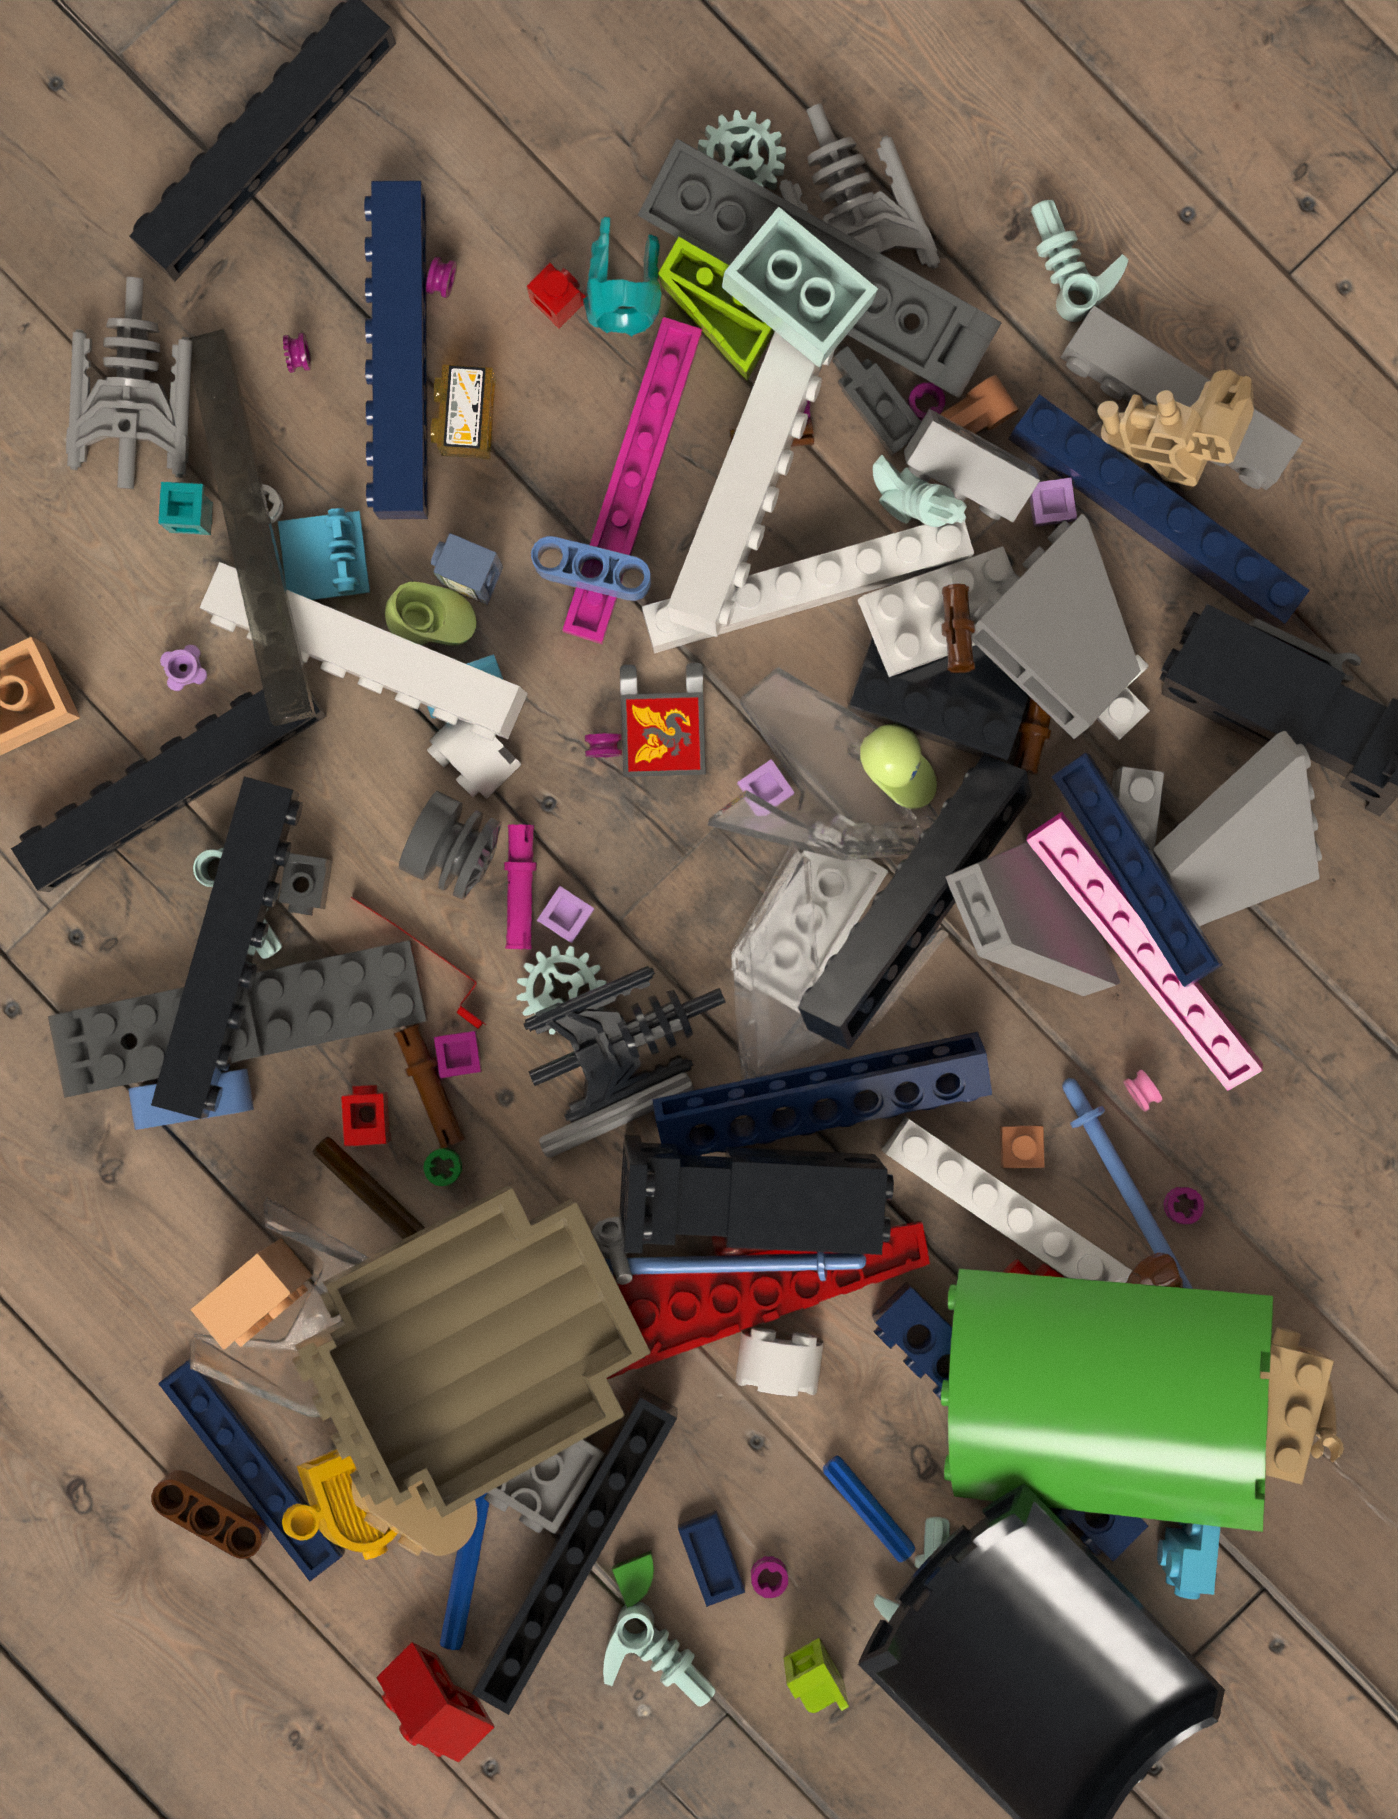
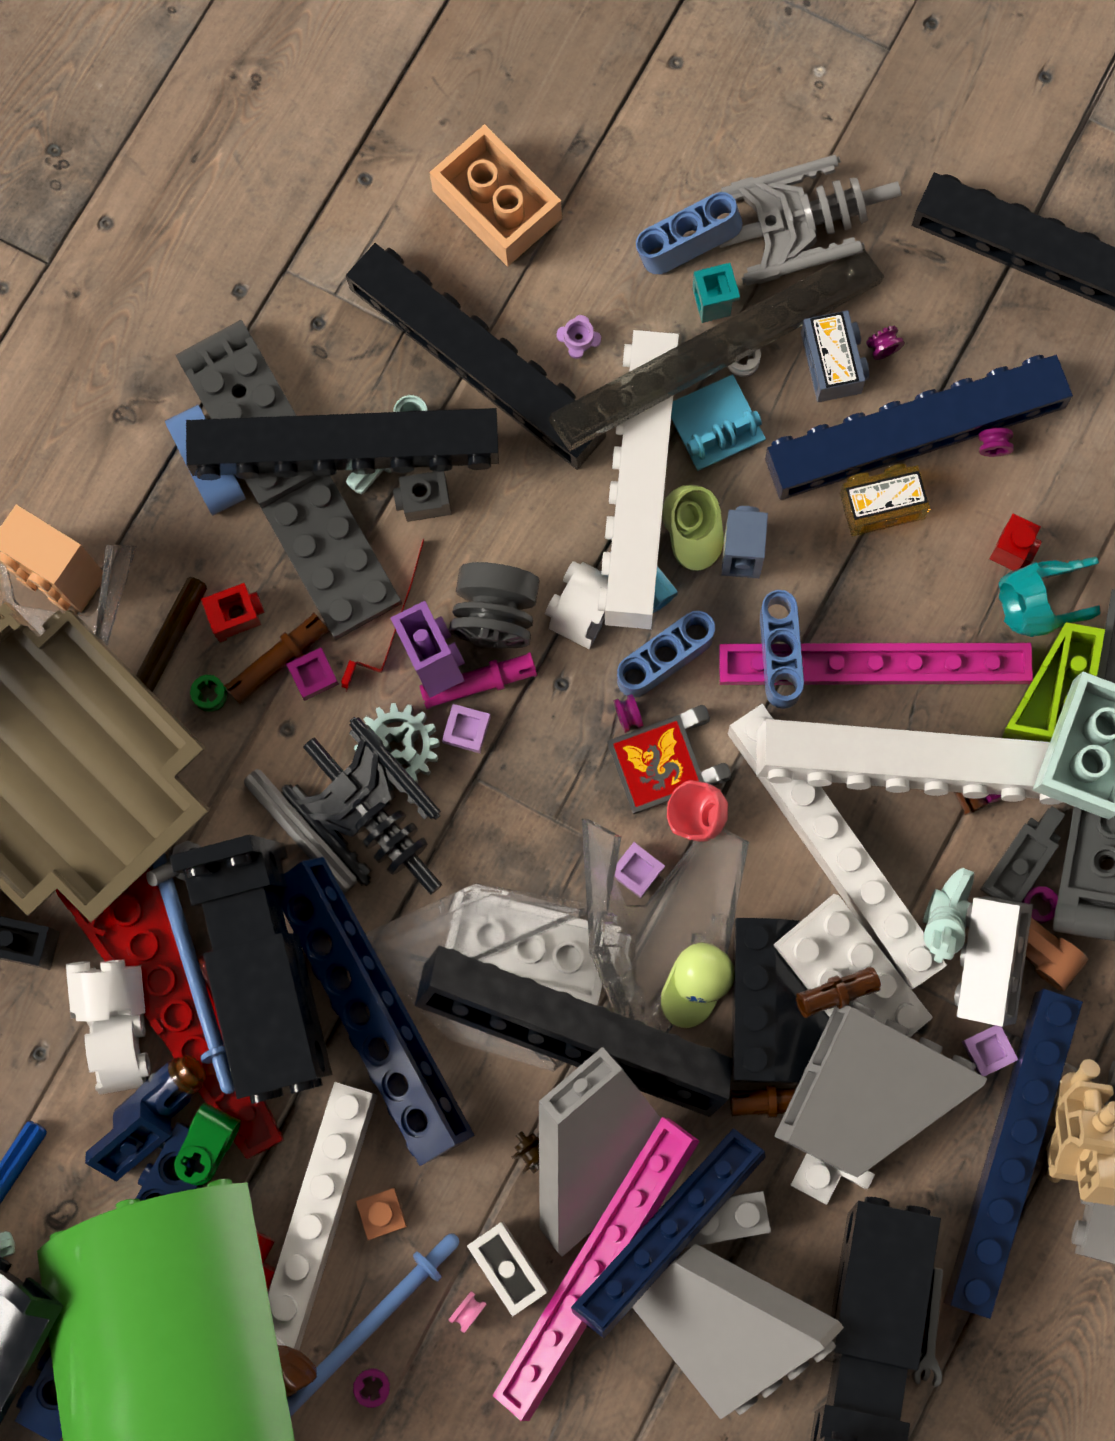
camera: 85 degrees right, 10 degrees down
(95, 500) = (697, 217): none -> medium blue beam
(294, 409) = (834, 356): none -> brick
(473, 928) = (427, 649): none -> medium lavender brick
(554, 667) = (672, 637): none -> medium blue beam
(721, 1359) = (104, 991): none -> white cylinder
(727, 708) = (697, 811): none -> coral hair
(859, 1354) = (145, 1117): none -> dark blue plate
(904, 1295) = (210, 1137): none -> green piece
(1009, 981) = (528, 1150): none -> dark brown wheel
(1116, 1038) = (507, 1268): none -> white brick

